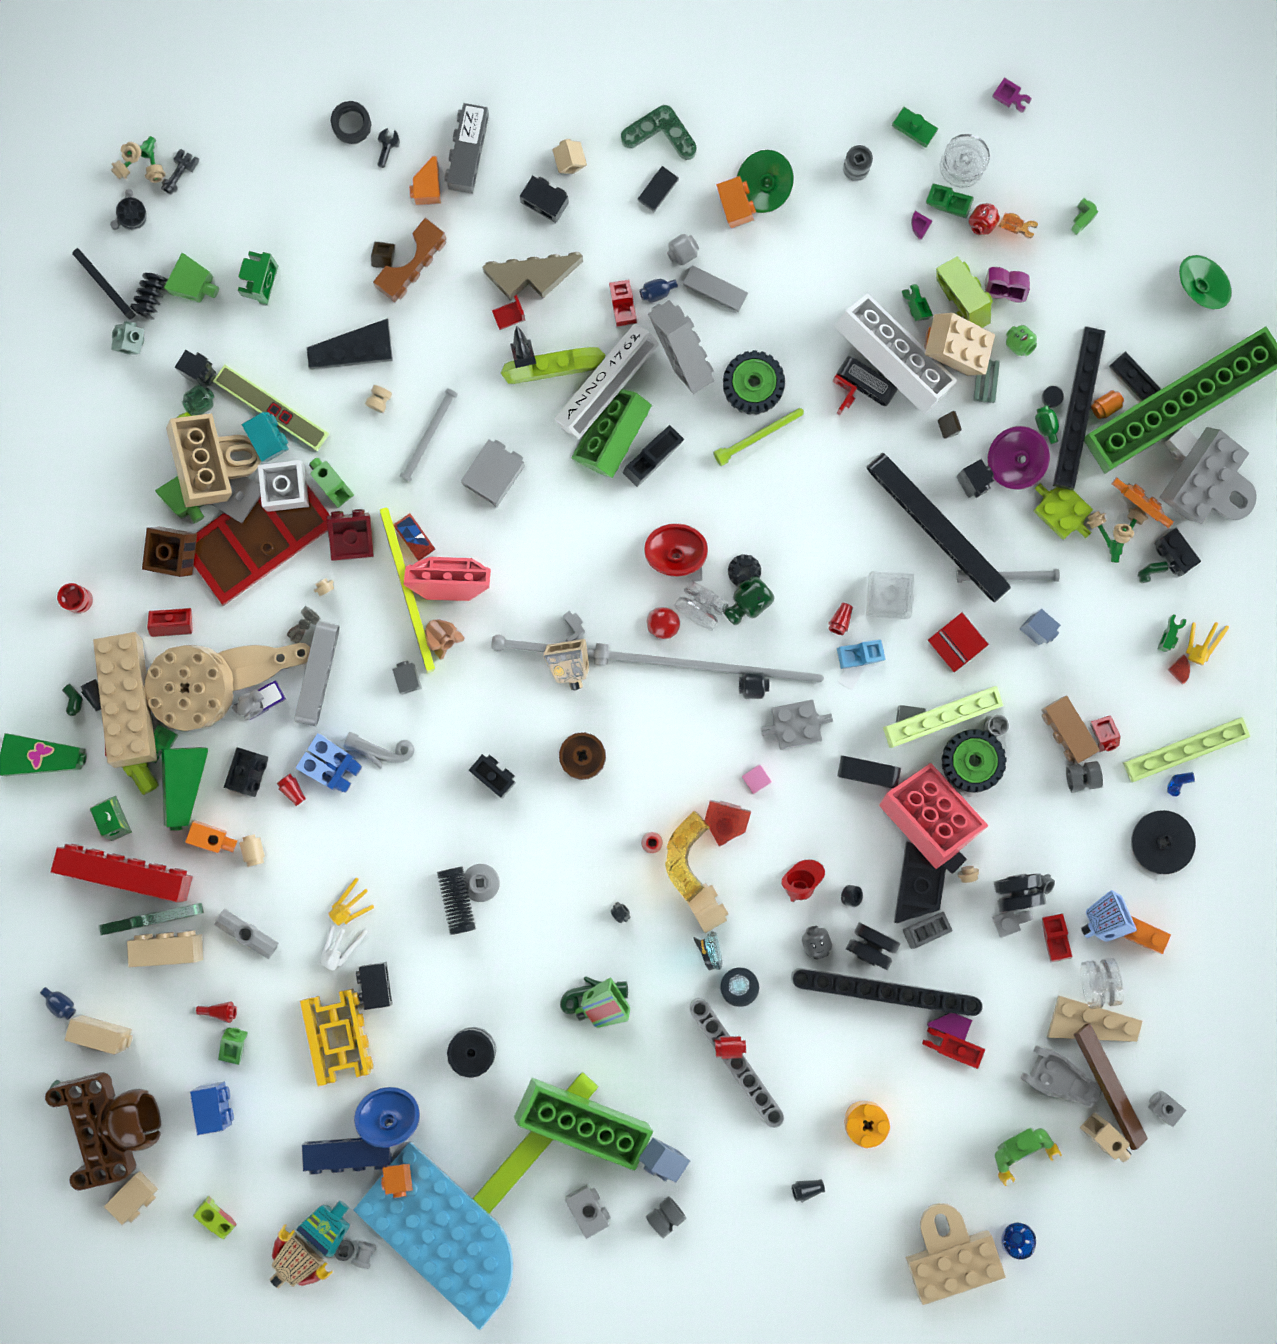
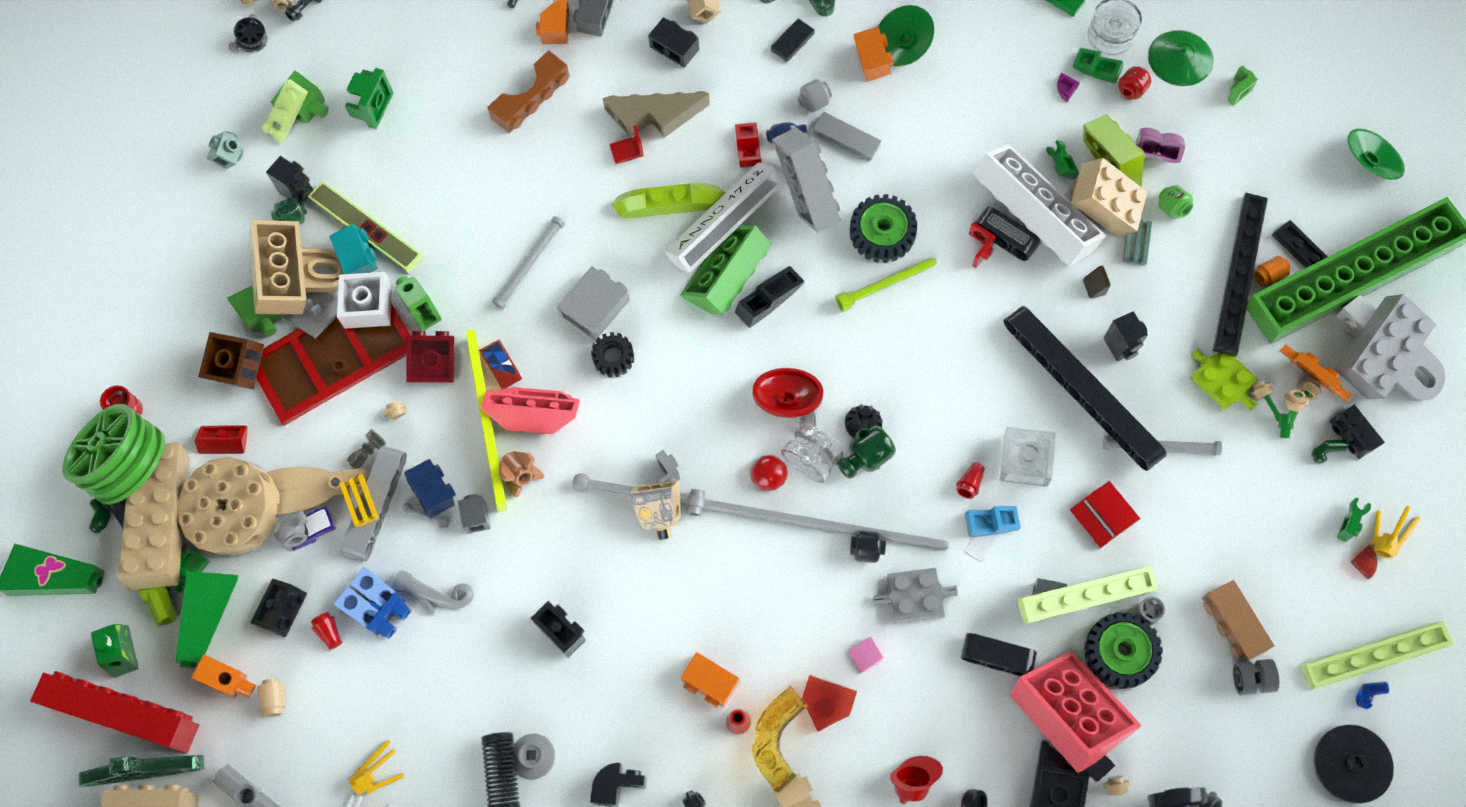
camera: 10 degrees right, 15 degrees down
(81, 649) = (113, 454): none -> bright green wheel
(103, 283) = (210, 97): black tile -> none
(148, 294) = (253, 108): black piece -> none
(180, 296) = (285, 110): none -> yellowish green plate
(297, 659) = (352, 483): none -> yellow tile
(356, 347) = (463, 173): black wing -> none
(365, 657) = (429, 488): none -> dark blue brick
(378, 398) = (479, 222): tan wheel -> none
(379, 687) = (443, 523): none -> light grey hinge
(382, 254) = (501, 84): dark brown slope -> none
(522, 349) = (636, 180): black tile -> none
(524, 530) = (612, 342): none -> black tyre
(547, 902) = (608, 781): none -> black brick
(578, 744) = (655, 602): reddish brown wheel -> none
(626, 810) = (709, 680): none -> orange brick
(857, 168) = (1002, 23): dark grey wheel -> none
(1006, 454) = (1167, 307): magenta dish -> none
(1014, 224) = (1167, 90): clear orange plate -> none
(1027, 186) = (1180, 58): none -> green hat
(1041, 627) = (1202, 501): sand blue brick -> none
(1047, 423) = (1205, 287): green plant -> none
(1052, 396) = (1210, 261): black tile -> none
(1106, 733) = (1280, 628): bracket -> none

